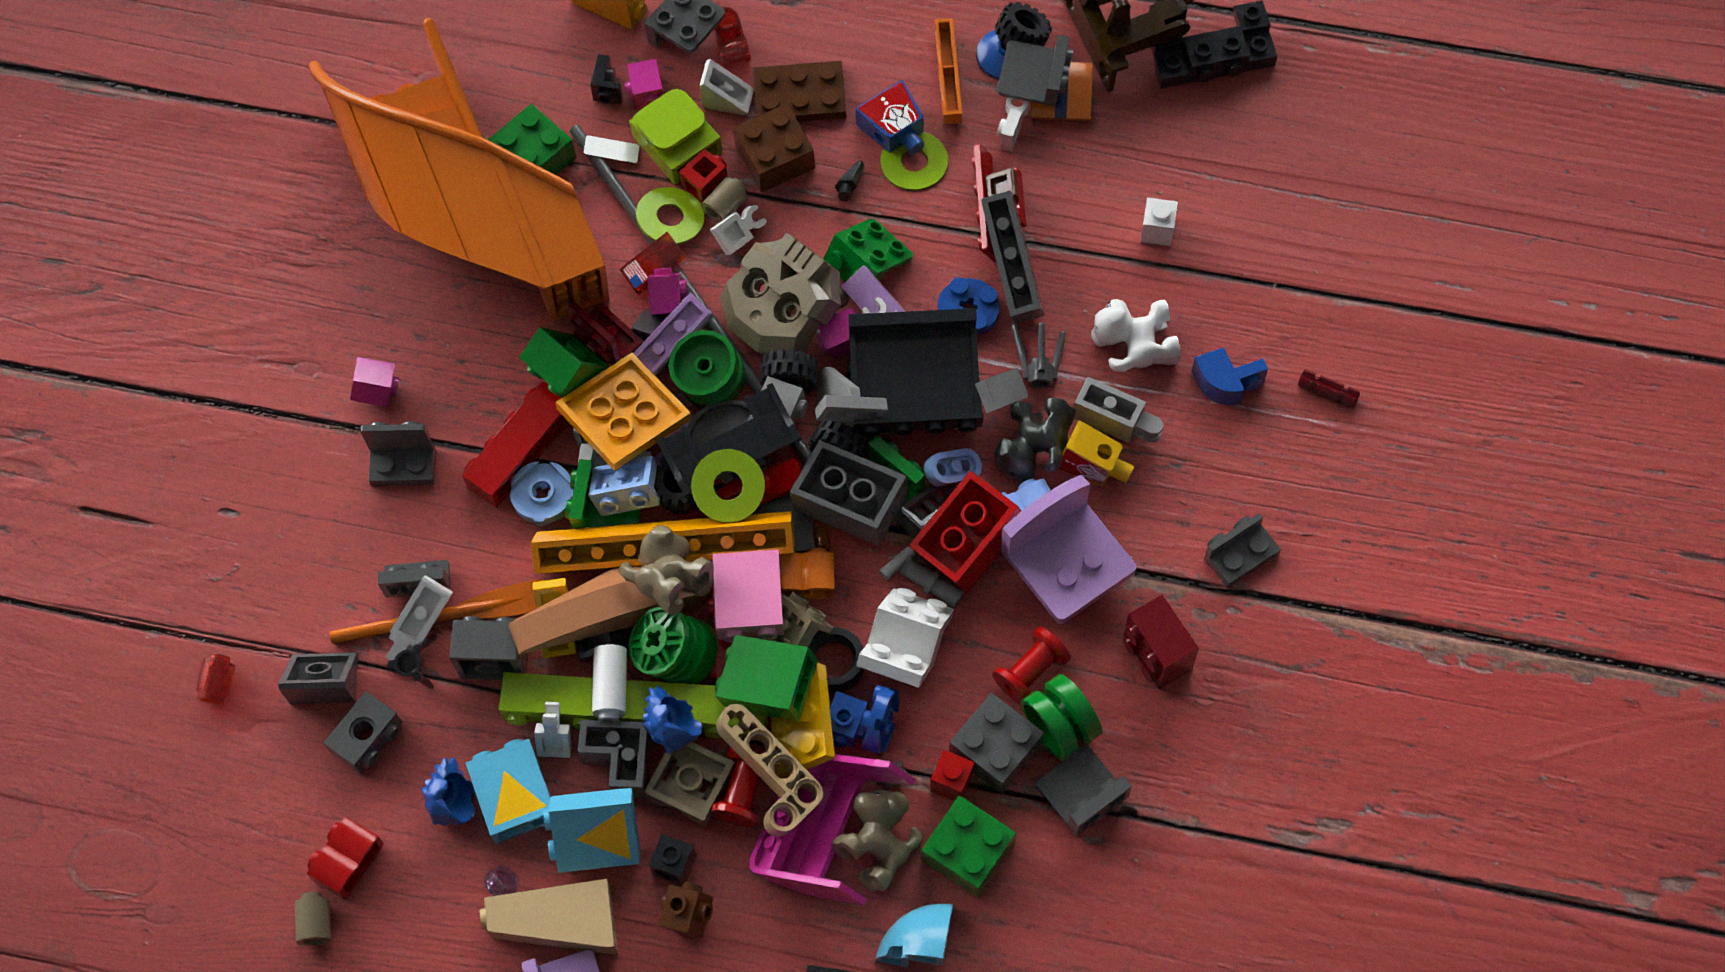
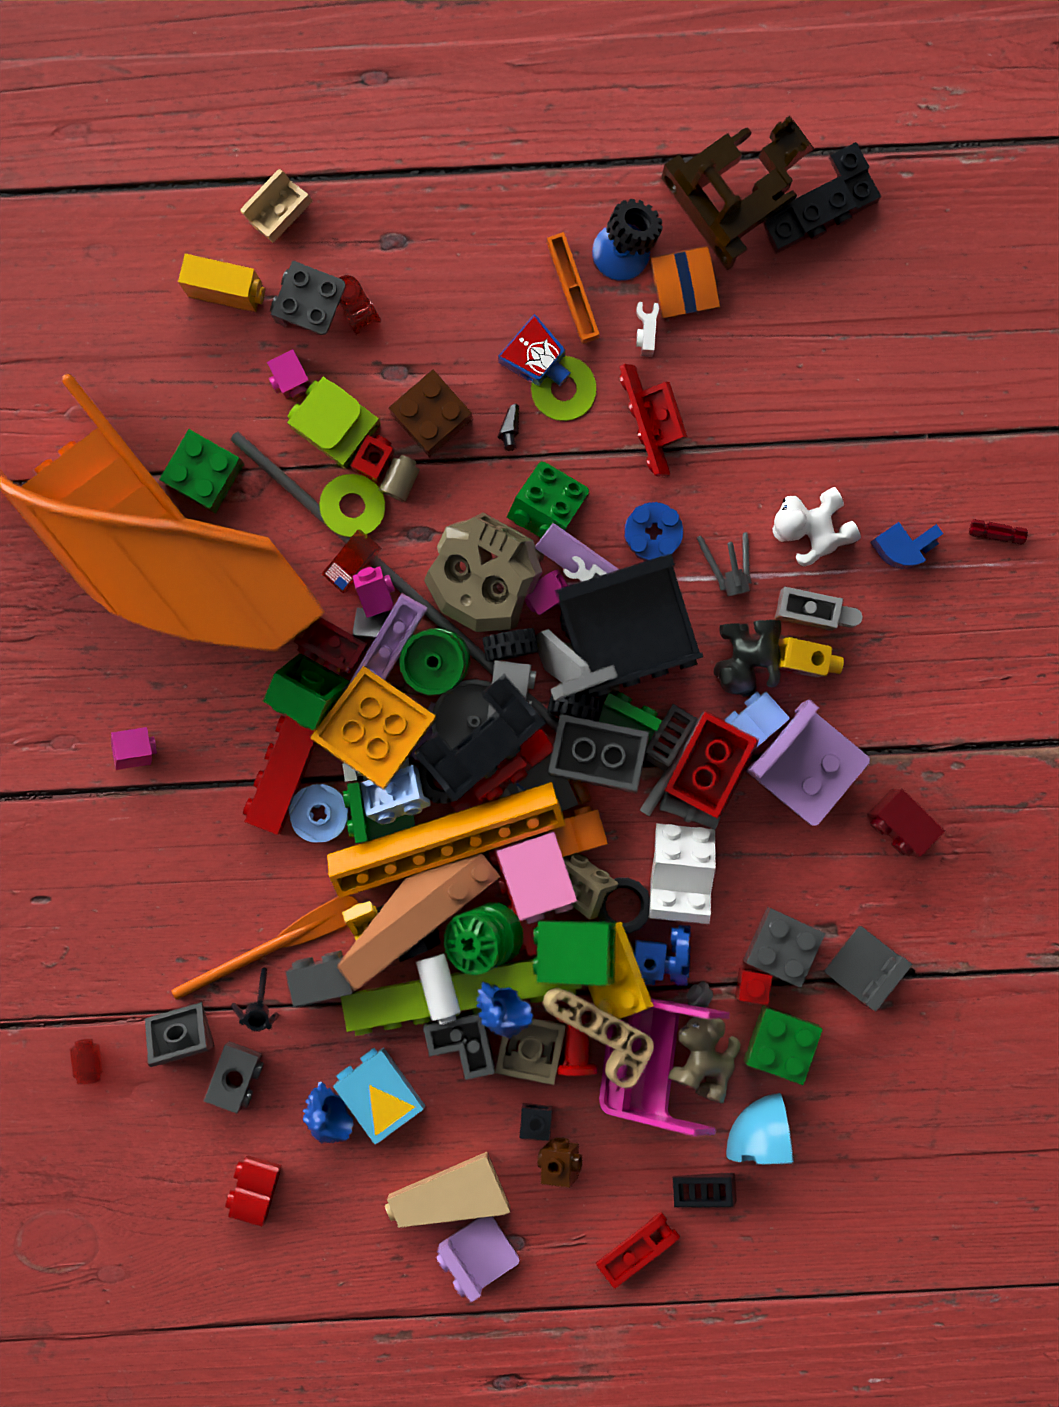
camera: 15 degrees left, 20 degrees up
(312, 919) = (245, 1250): dark tan brick -> none
(399, 454) = (181, 815): dark grey bracket -> none
(404, 578) = (231, 923): dark grey bracket -> none
(418, 615) = (248, 965): white hinge -> none
(501, 881) = (398, 1171): clear purple plate -> none
(552, 737) = (400, 1038): white plate -> none
(593, 830) = (461, 1117): medium azure brick -> none
(603, 83) = (245, 377): black bracket -> none
(611, 149) = (276, 449): white sticker -> none
(667, 570) = (453, 862): dark tan animal -> none
(724, 91) = (367, 362): white slope -> none
(734, 230) = (418, 508): white plate -> none
(735, 462) = (488, 761): lime gear -> none
(809, 89) = (437, 342): reddish brown plate -> none
(947, 466) = (677, 704): light blue plate -> none
(1001, 182) = (656, 404): tile -> none
(1001, 390) = (708, 615): light grey tile -> none
(1012, 257) = (686, 479): dark grey brick -> none
(1032, 664) = (797, 869): red piece -> none
(1035, 71) = (659, 275): dark grey bracket -> none
(1062, 716) = (838, 912): green wheel -> none
(1159, 221) = (809, 402): white brick -> none
(1241, 550) = (954, 711): dark grey bracket -> none

